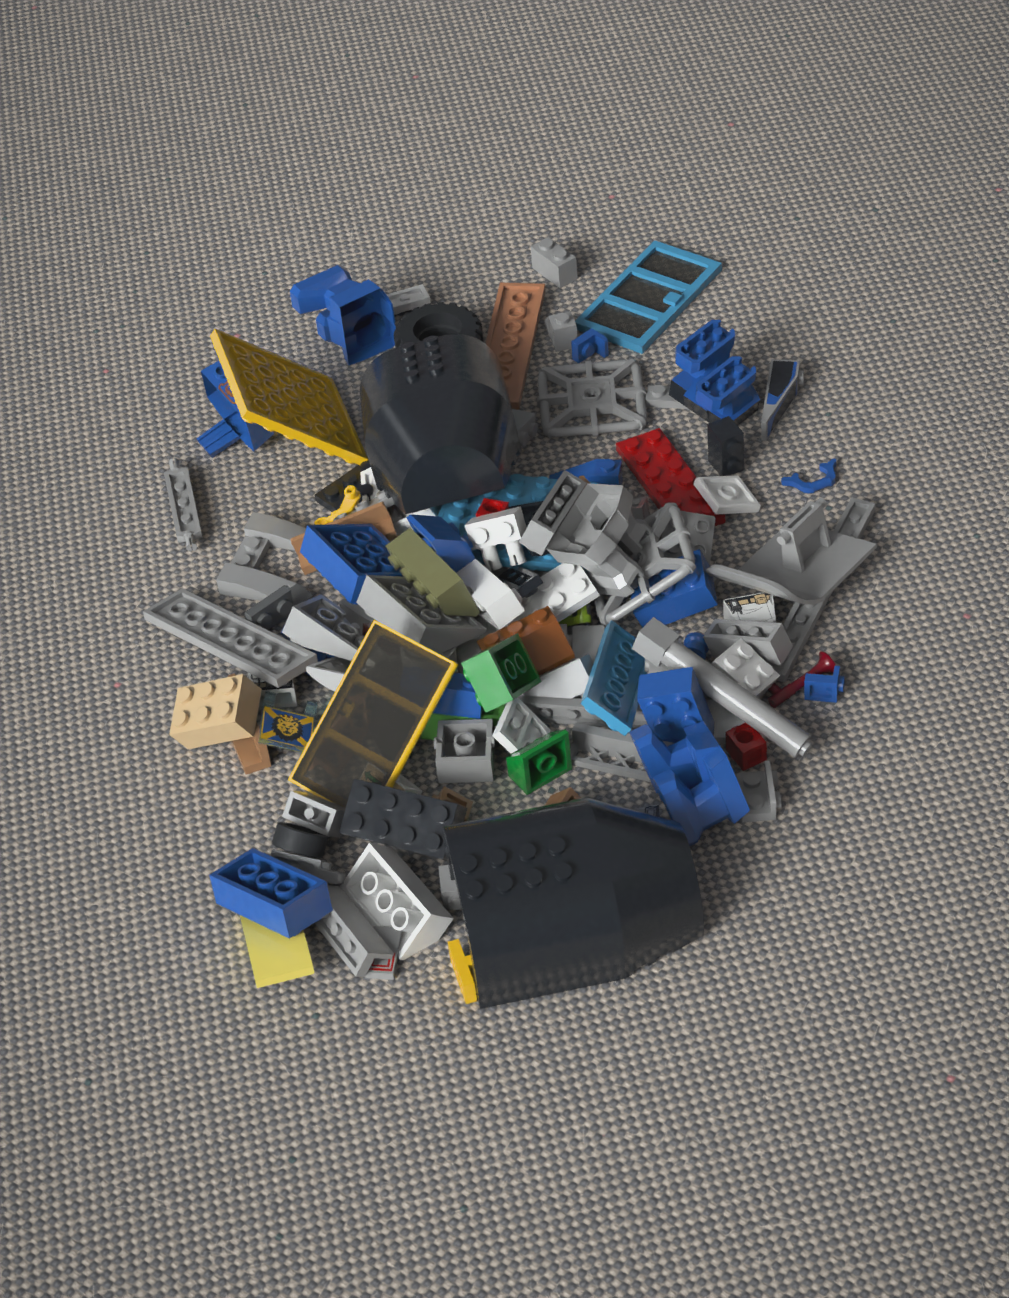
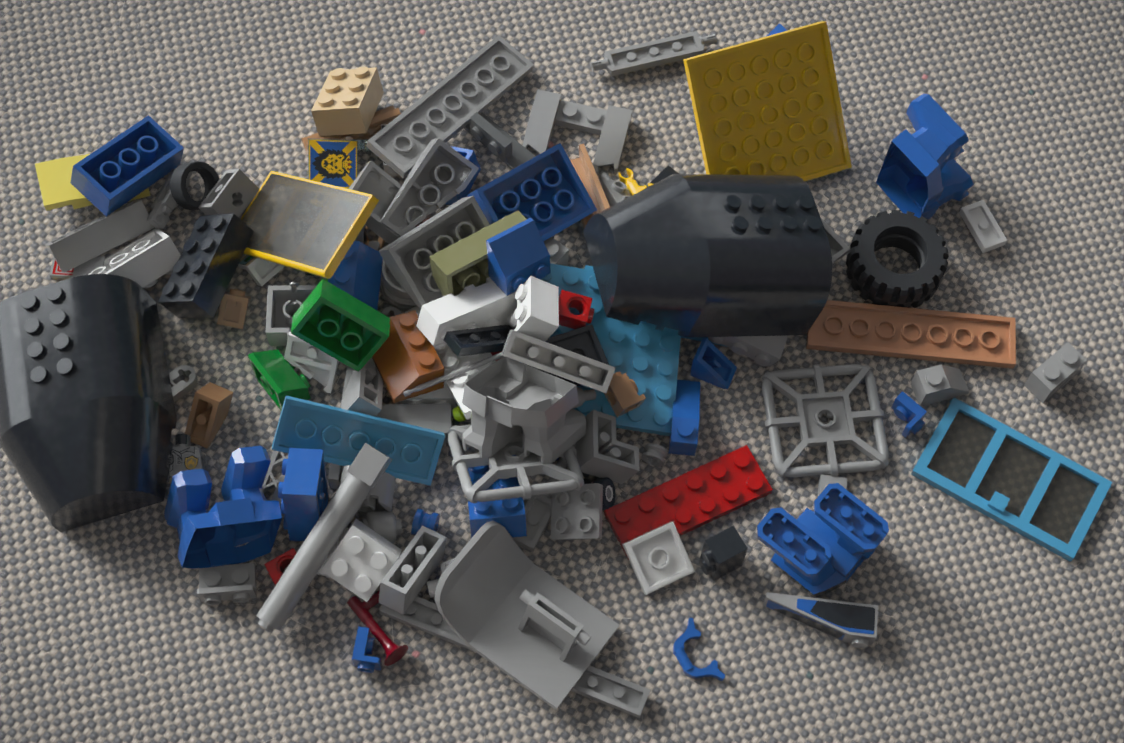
camera: 80 degrees right, 20 degrees up
(534, 464) = (712, 365): none -> blue slope
(549, 598) = (453, 374): none -> light grey piece

